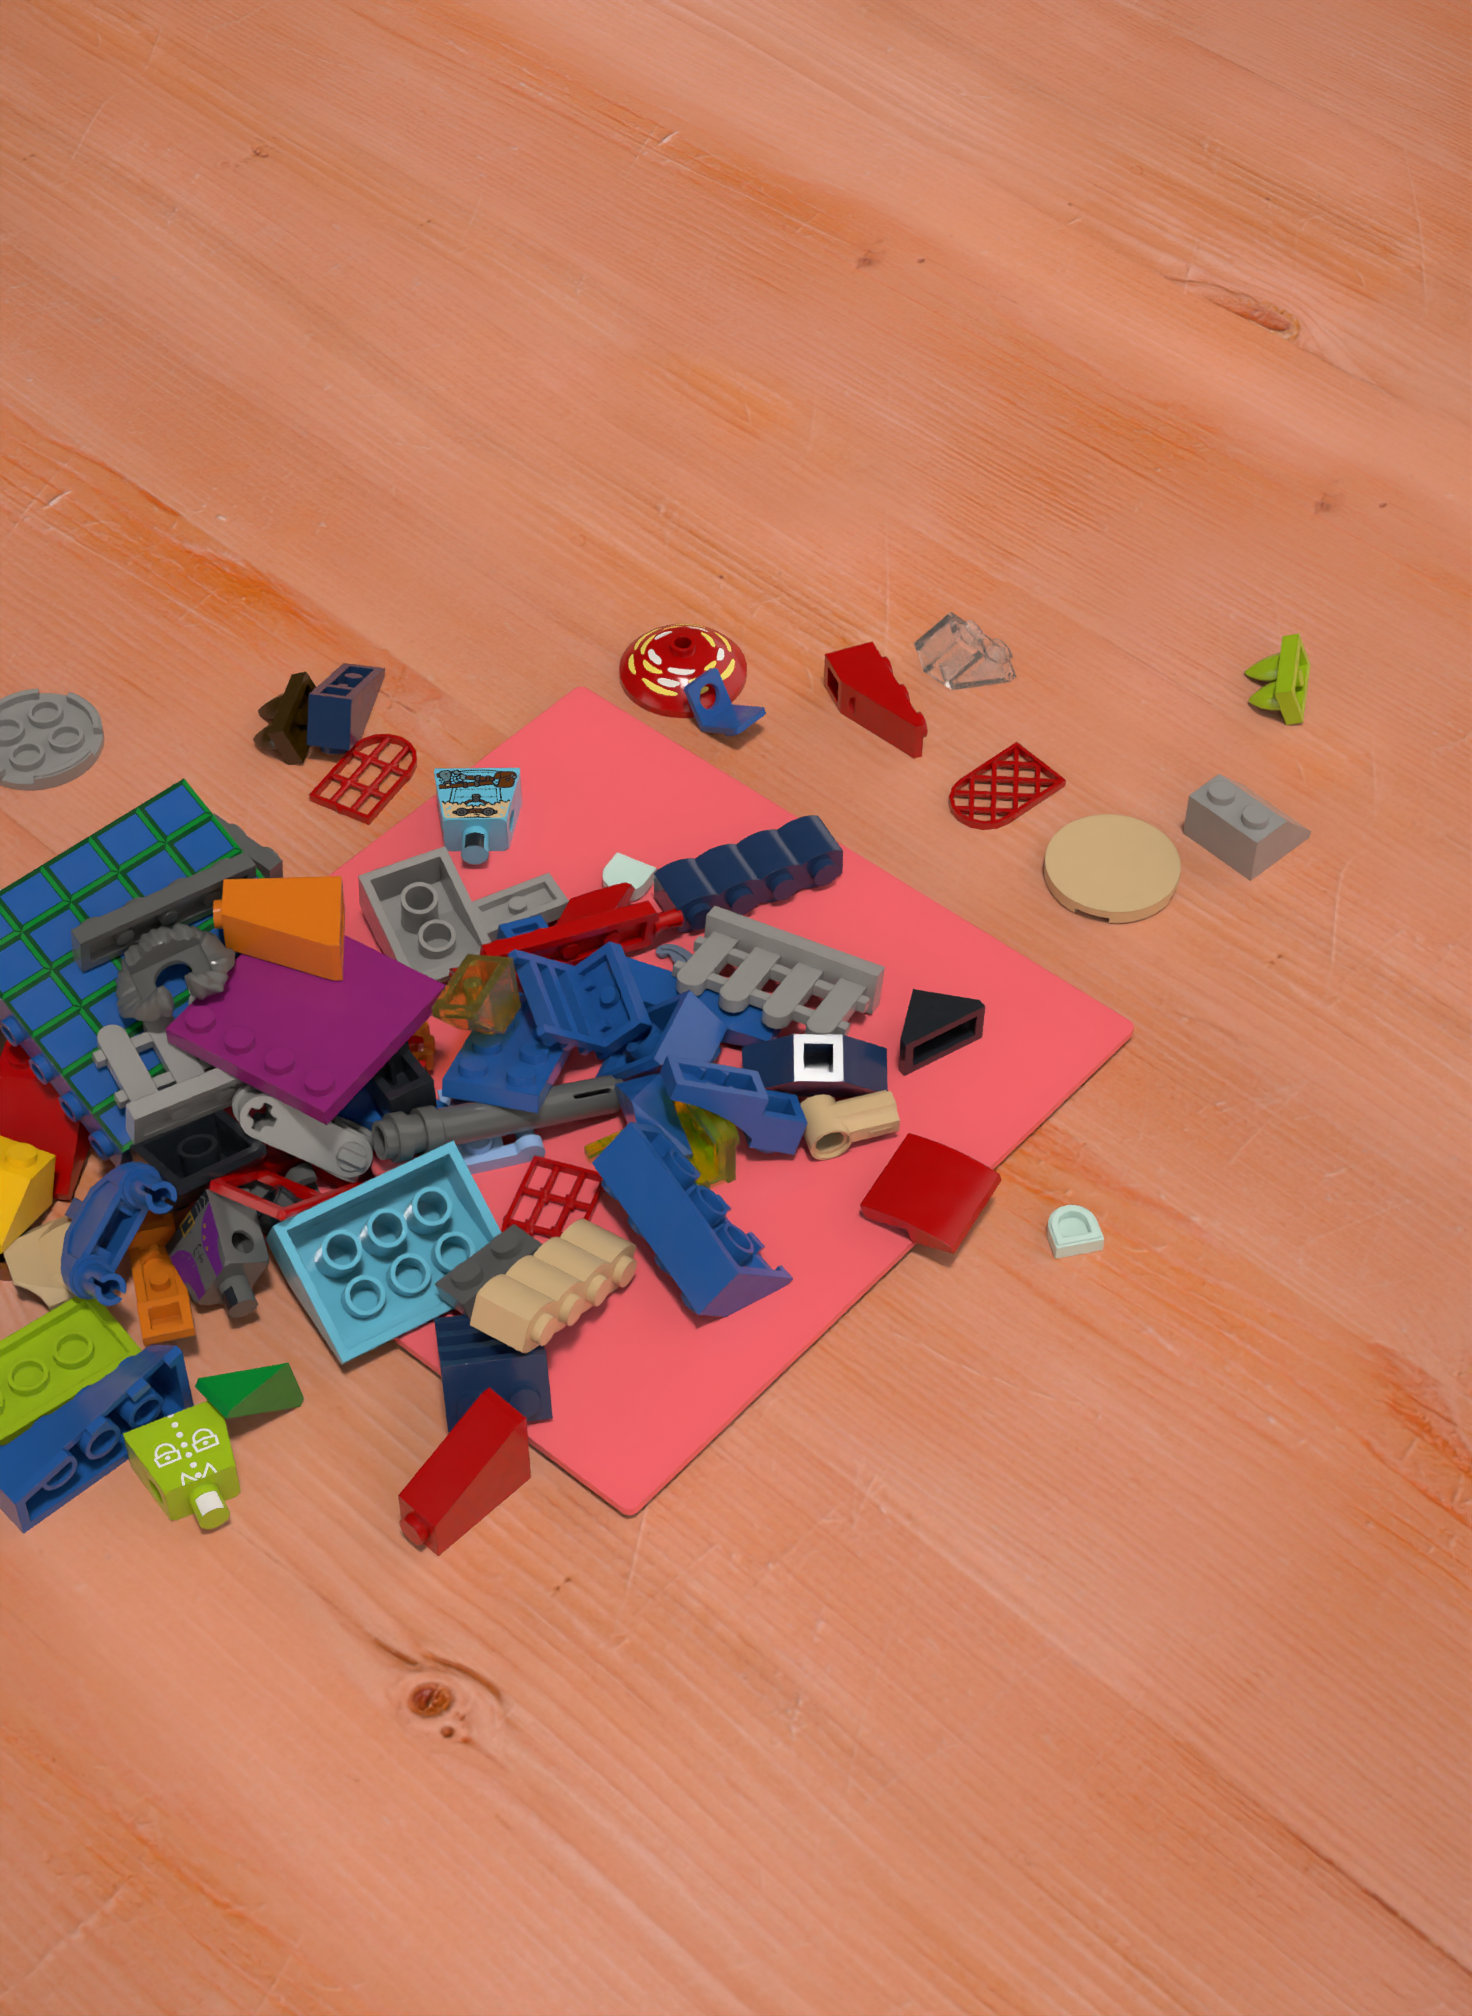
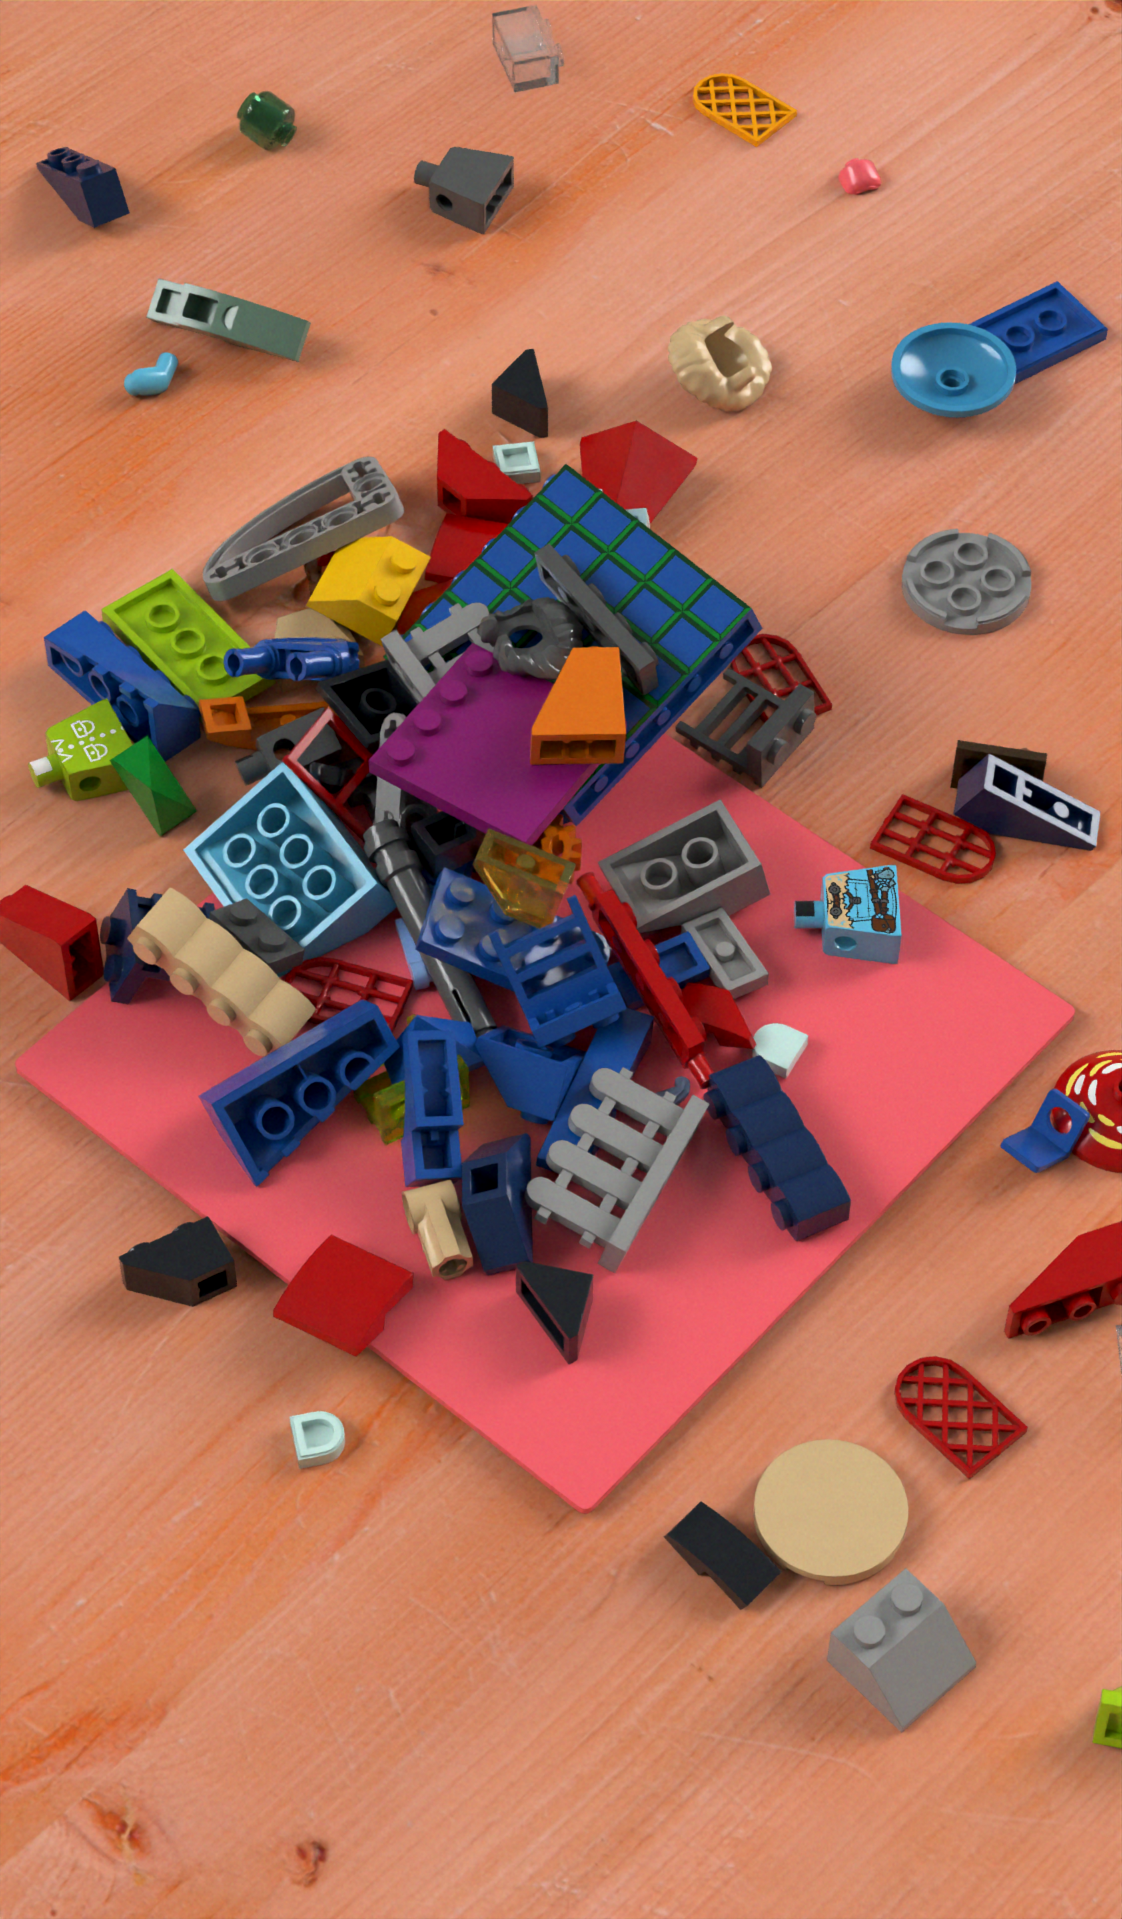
camera: 90 degrees right, 5 degrees up
(889, 1335) = (181, 1266): none -> black slope
(1165, 934) = (724, 1553): none -> black slope

